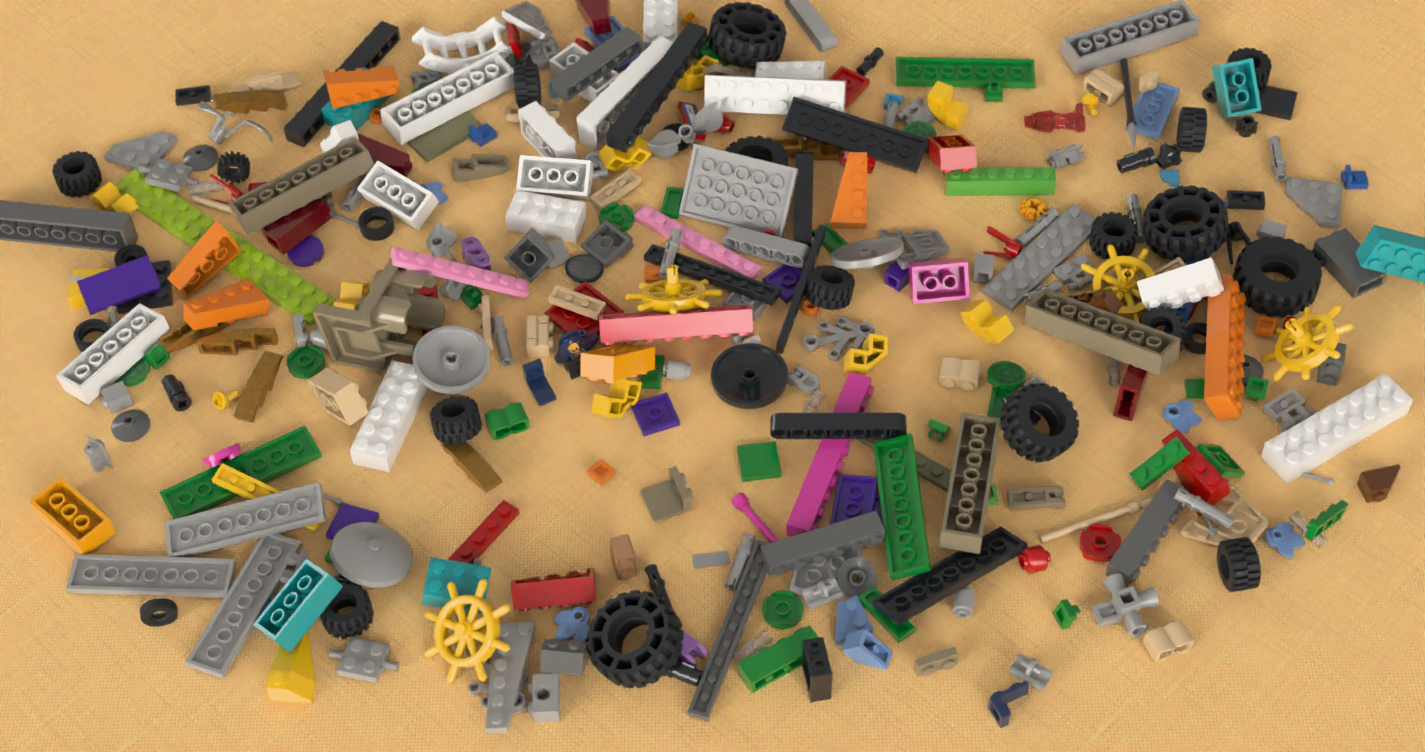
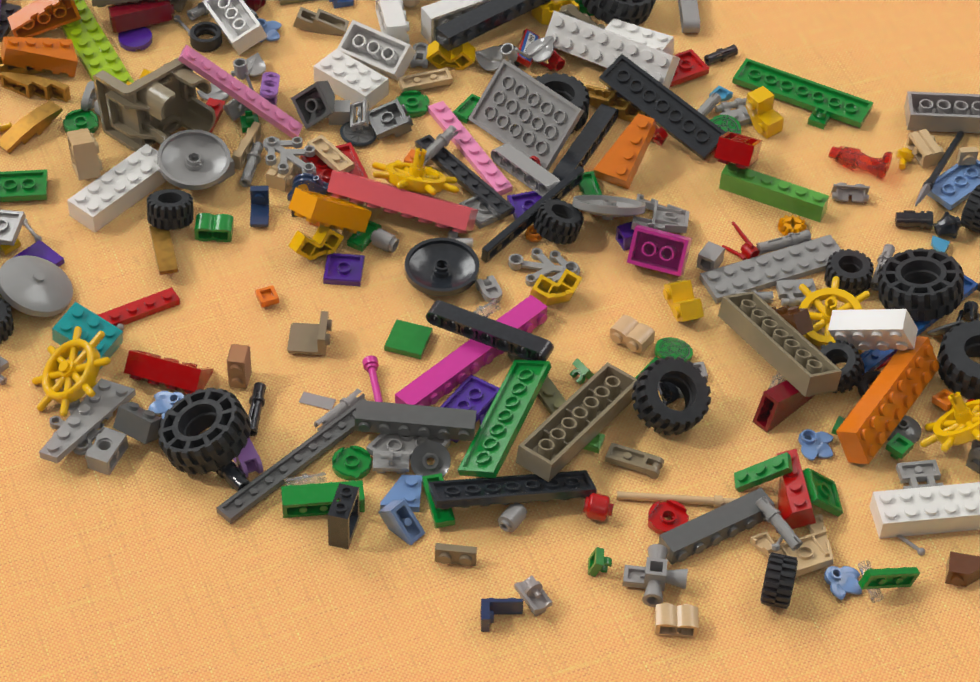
camera: 20 degrees right, 5 degrees down
(516, 313) = (274, 144): none -> light grey plant
(583, 259) = (362, 105): none -> light grey tile
(1230, 257) = (944, 329): none -> dark grey dish

